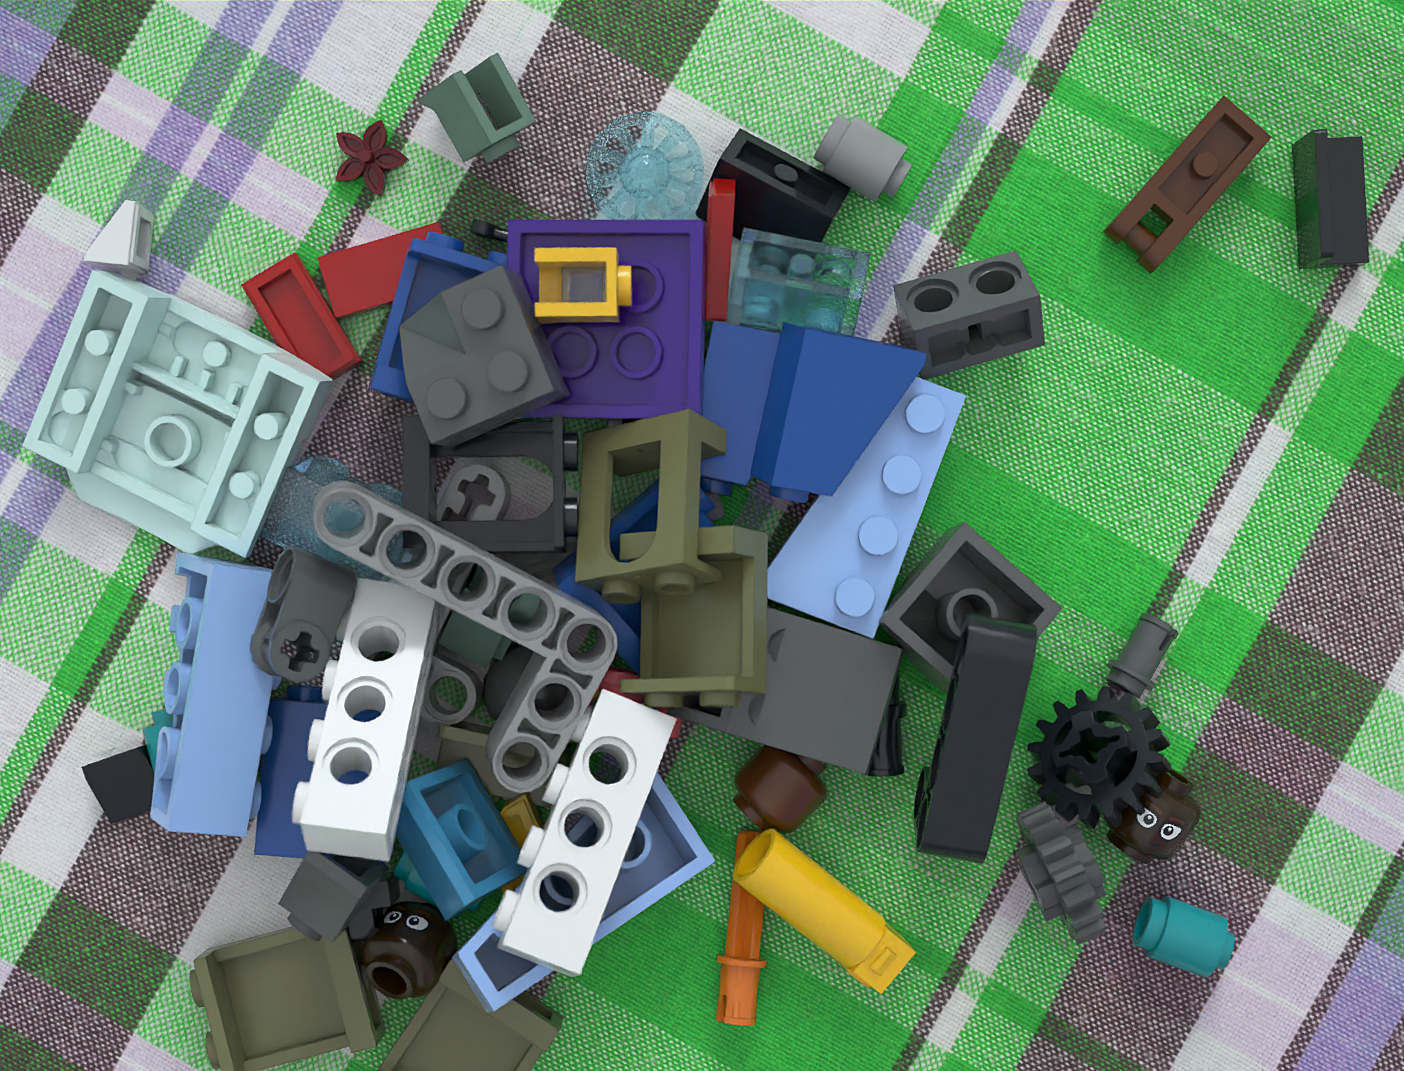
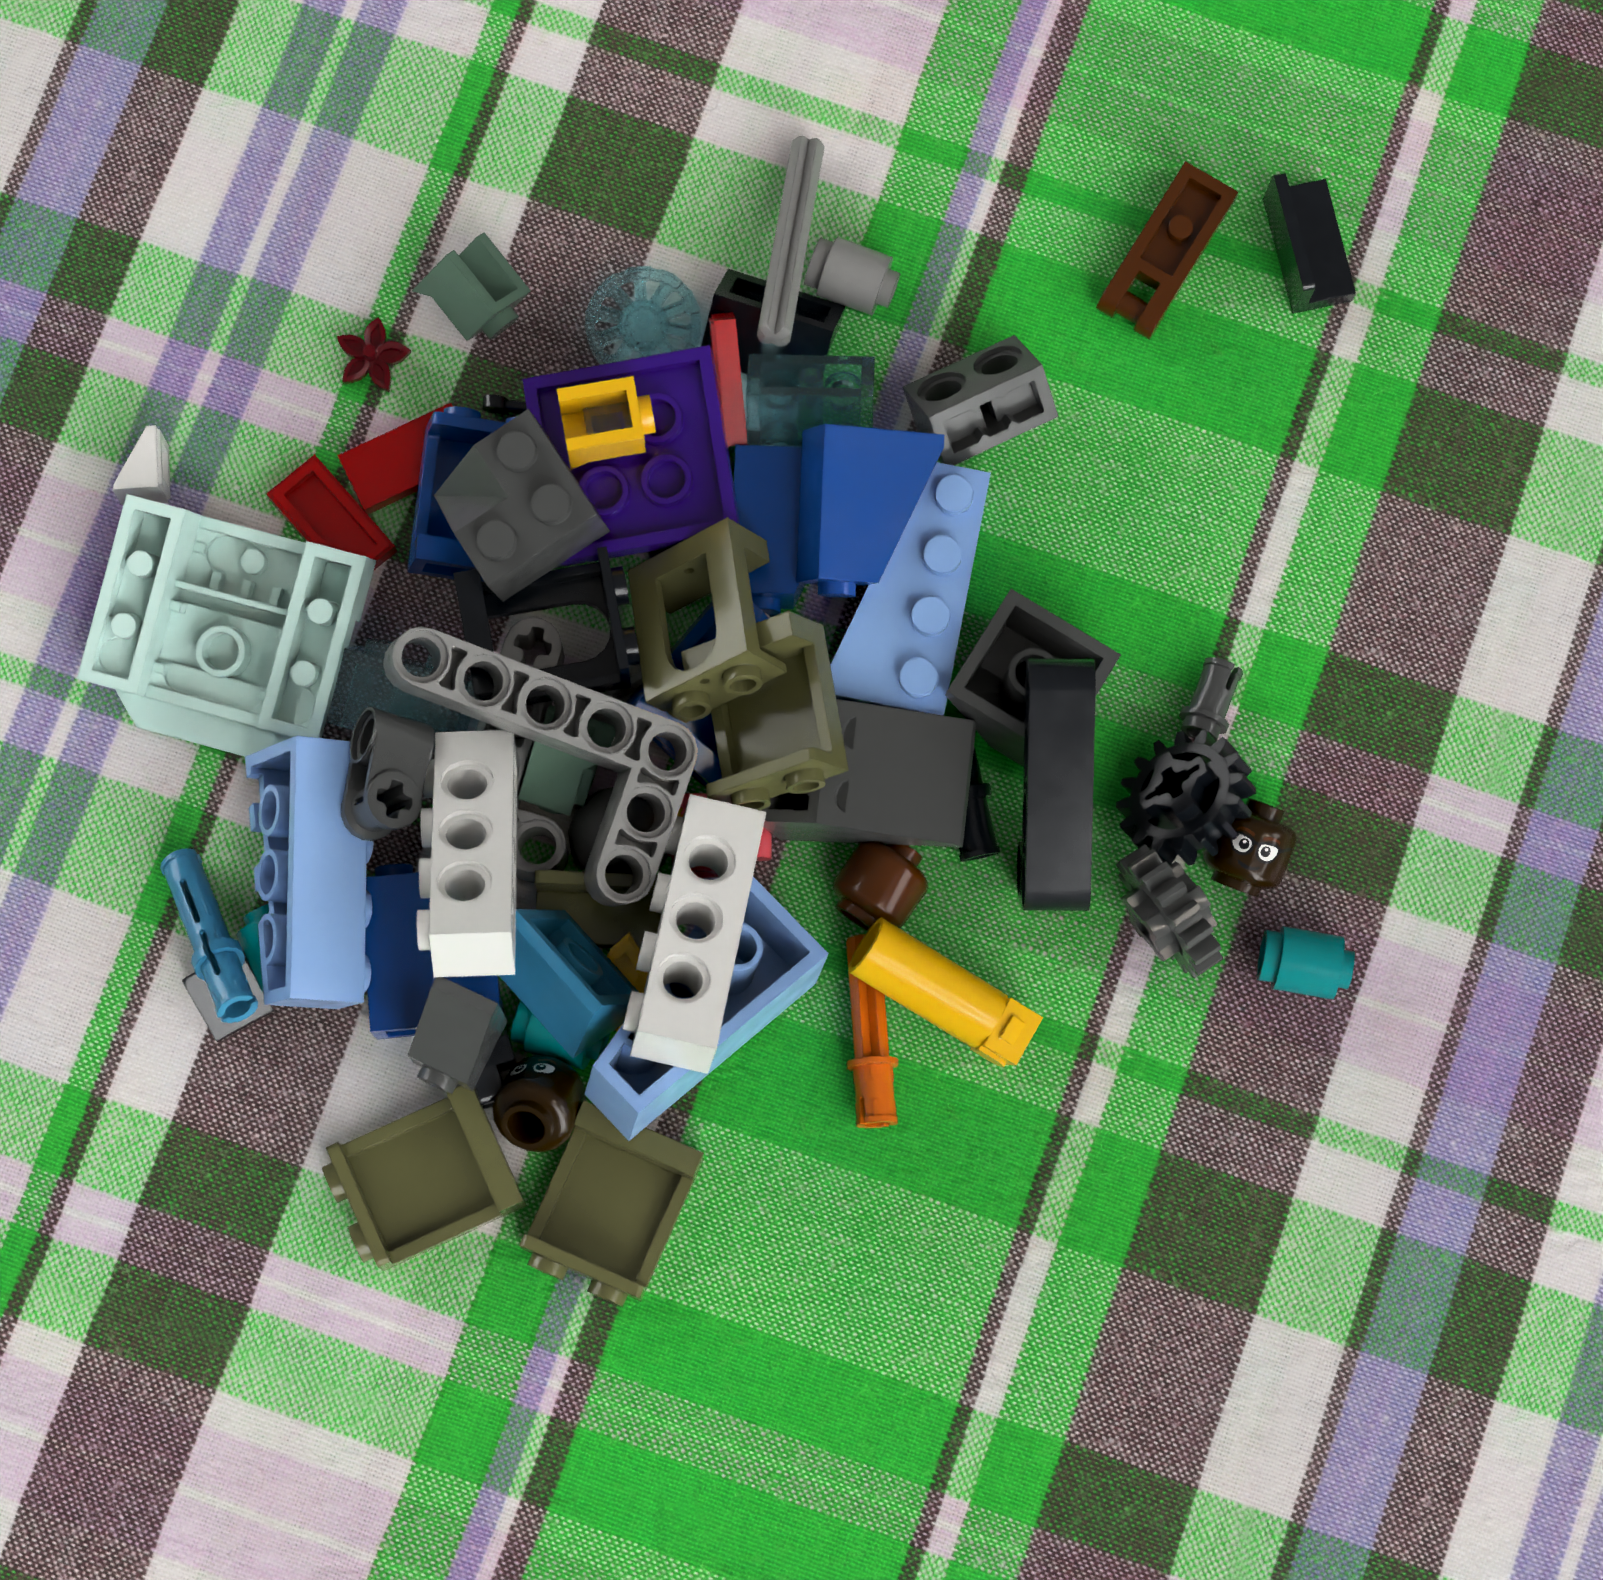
camera: 15 degrees left, 10 degrees down
(113, 752) = (216, 955): none -> dark azure pin
(806, 115) = (790, 241): none -> light grey axle

